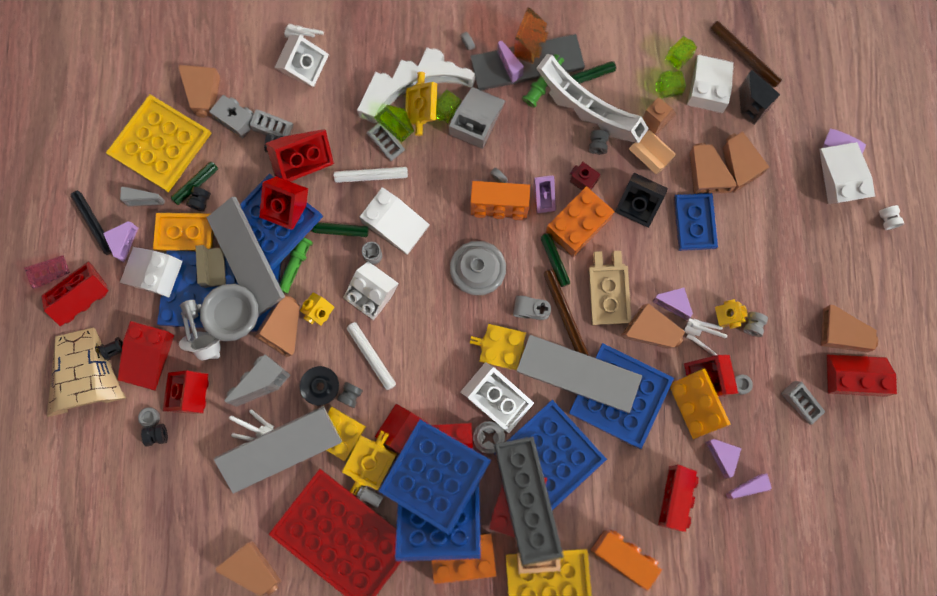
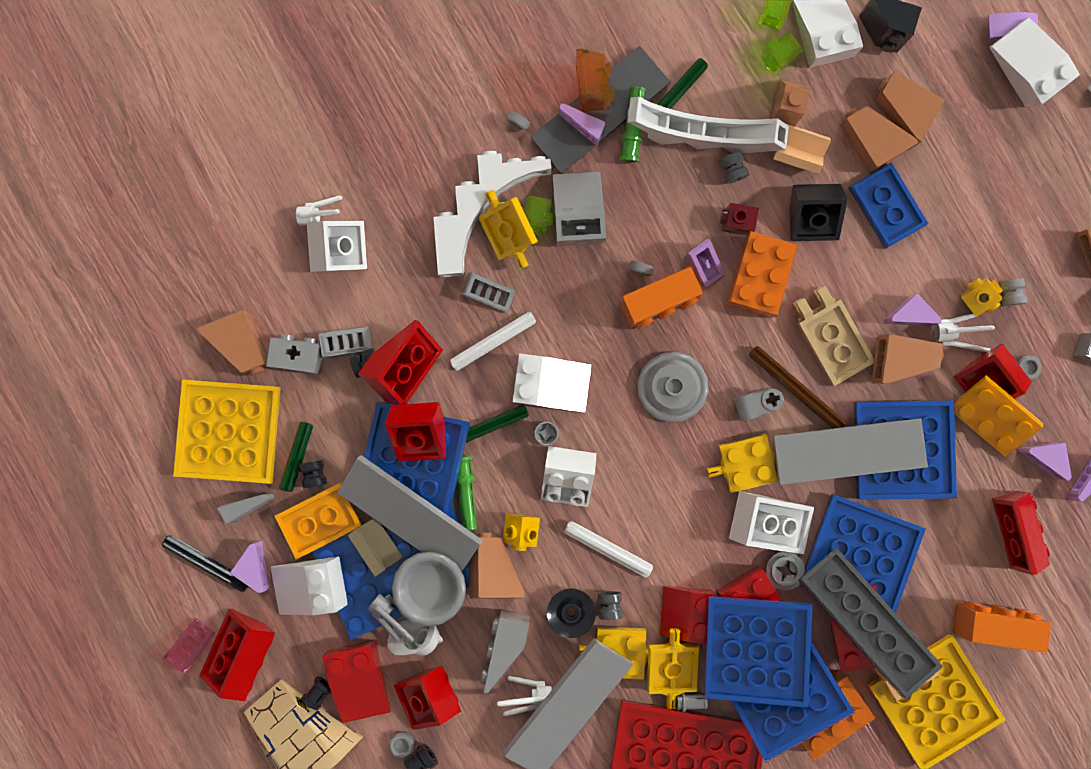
camera: 25 degrees left, 10 degrees up
(395, 121) = (490, 265): clear neon green slope -> none
(555, 260) = (754, 333): dark green axle -> none

